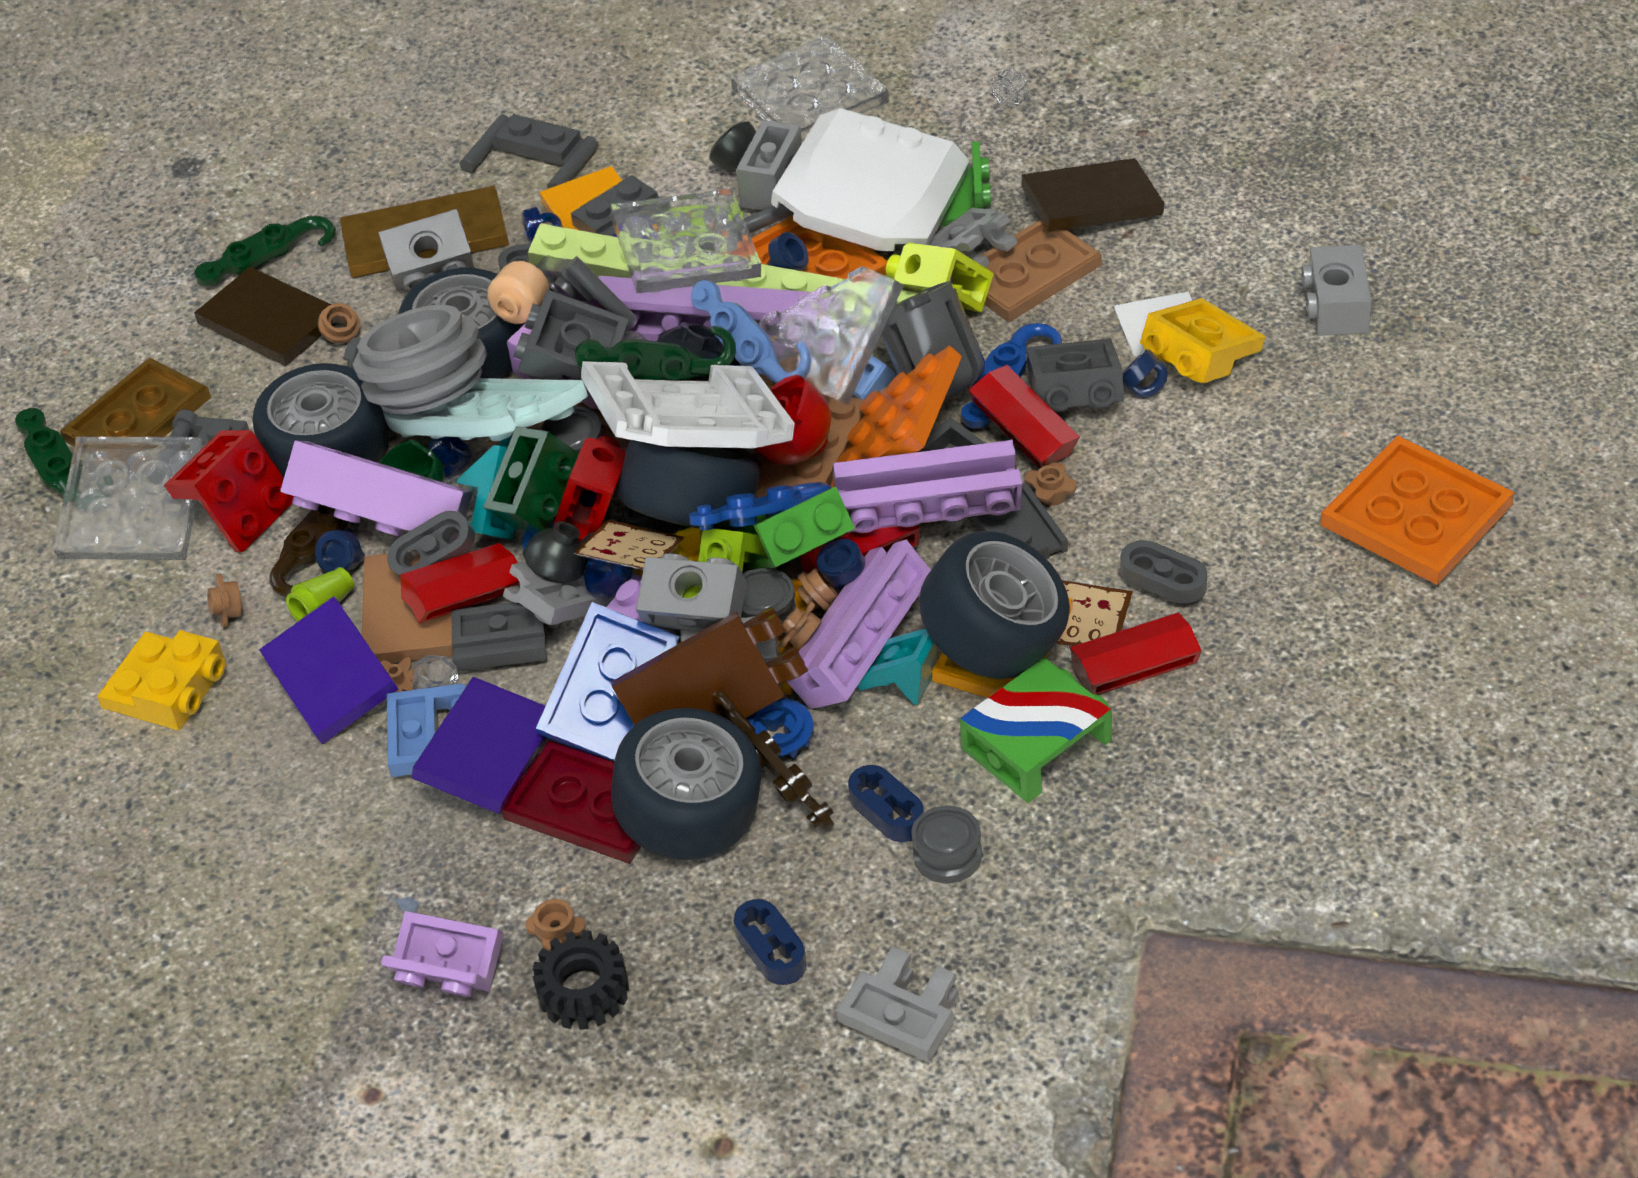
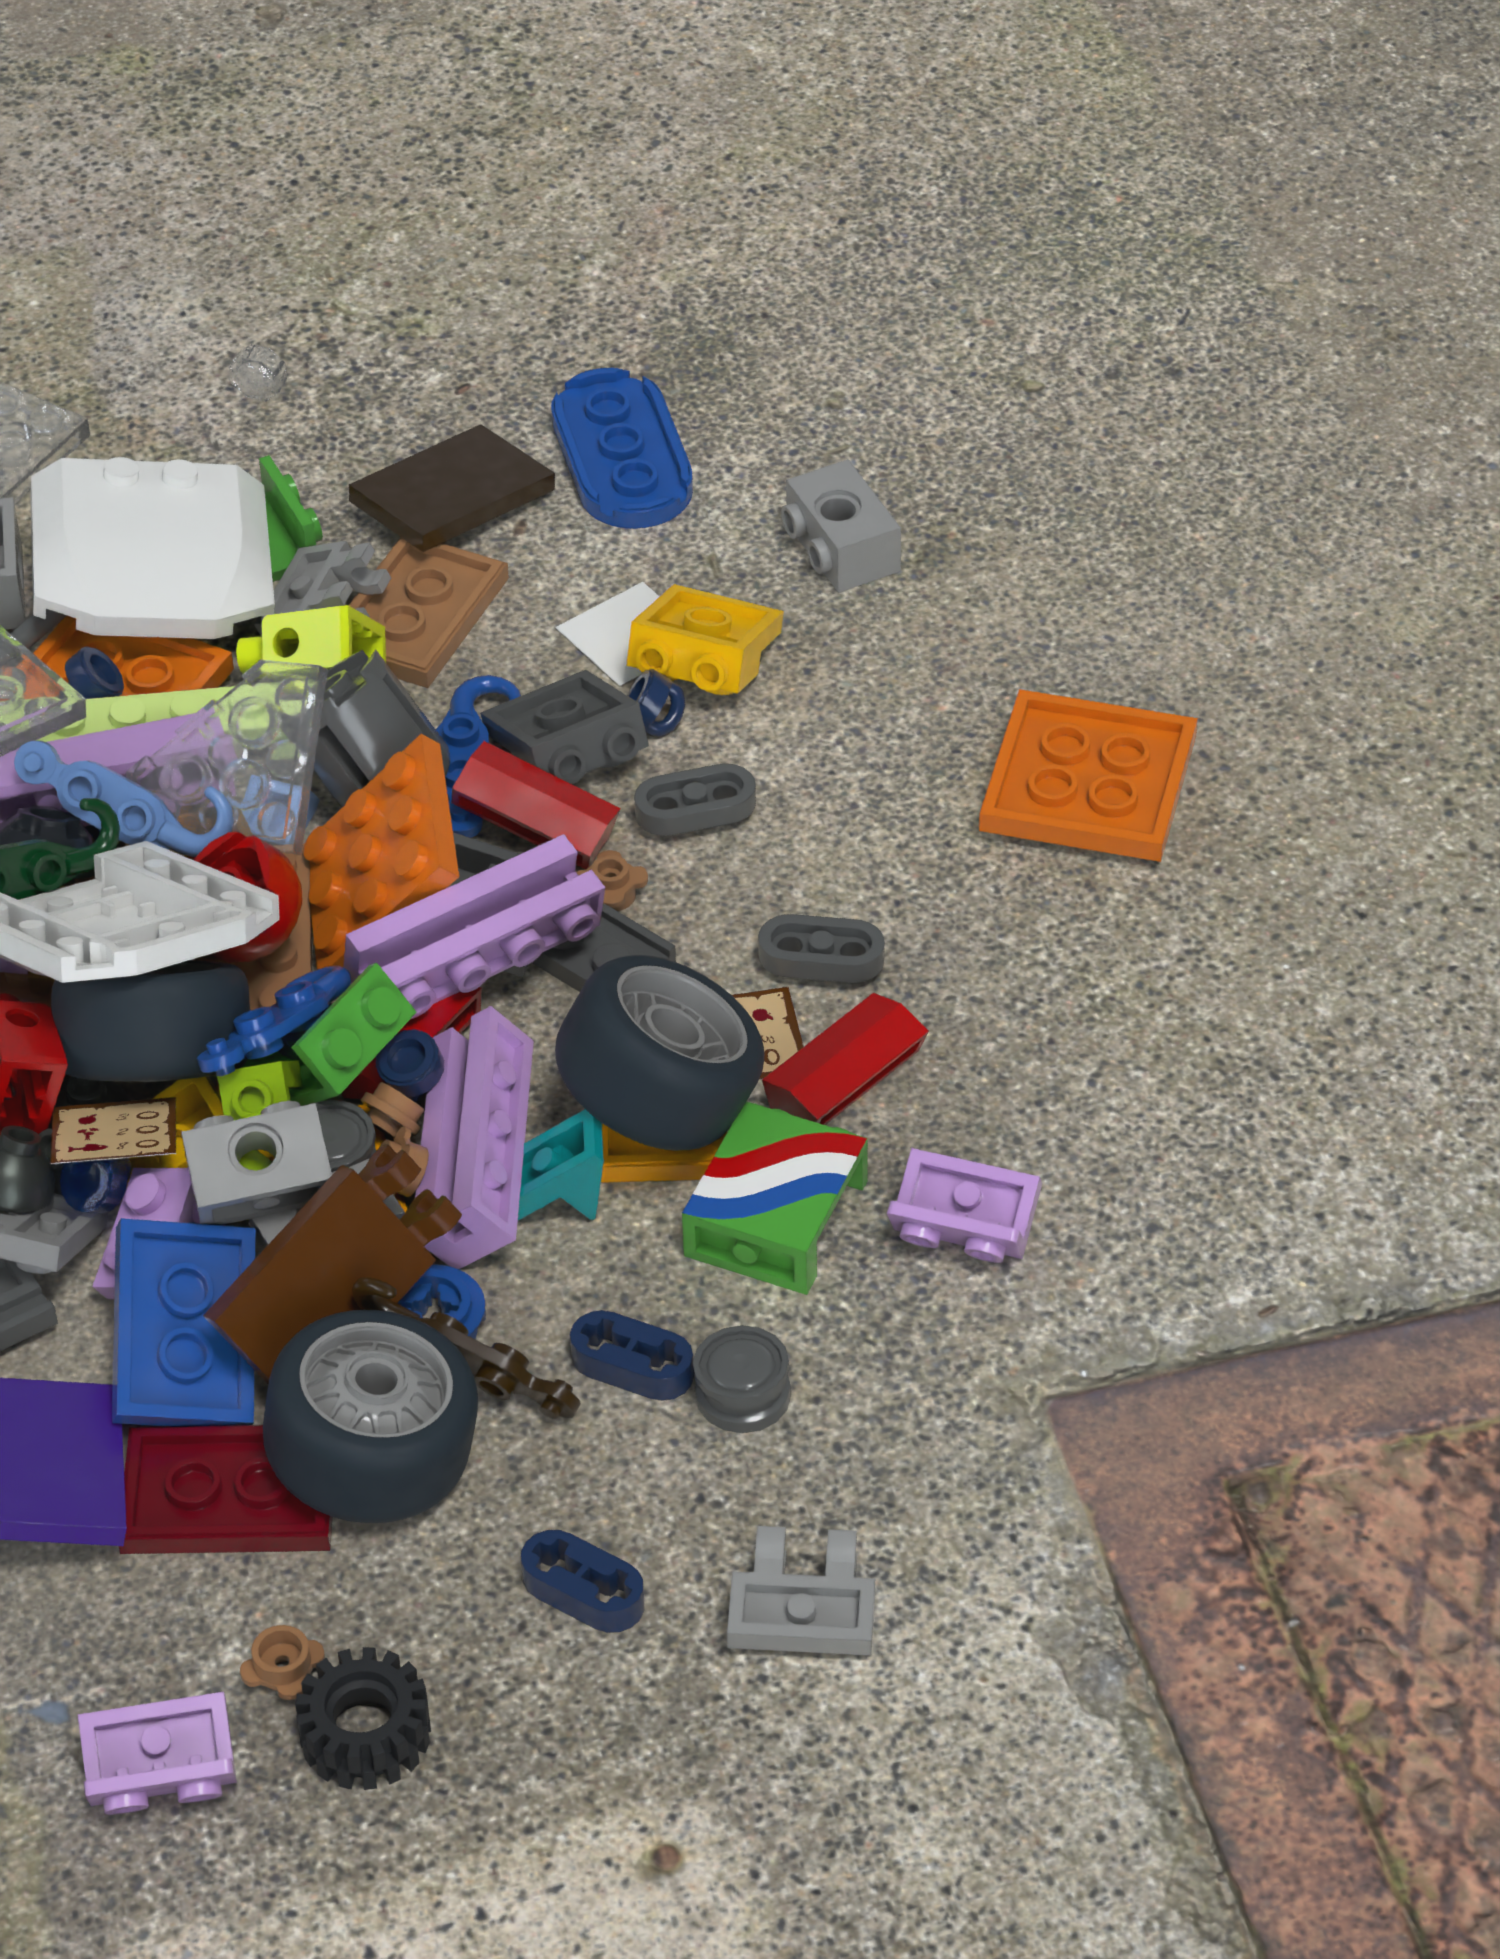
camera: 30 degrees left, 0 degrees up
(1135, 445) = (695, 799): none -> dark grey plate
(1161, 777) = (965, 1205): none -> lavender bracket
(1222, 199) = (622, 449): none -> blue tile

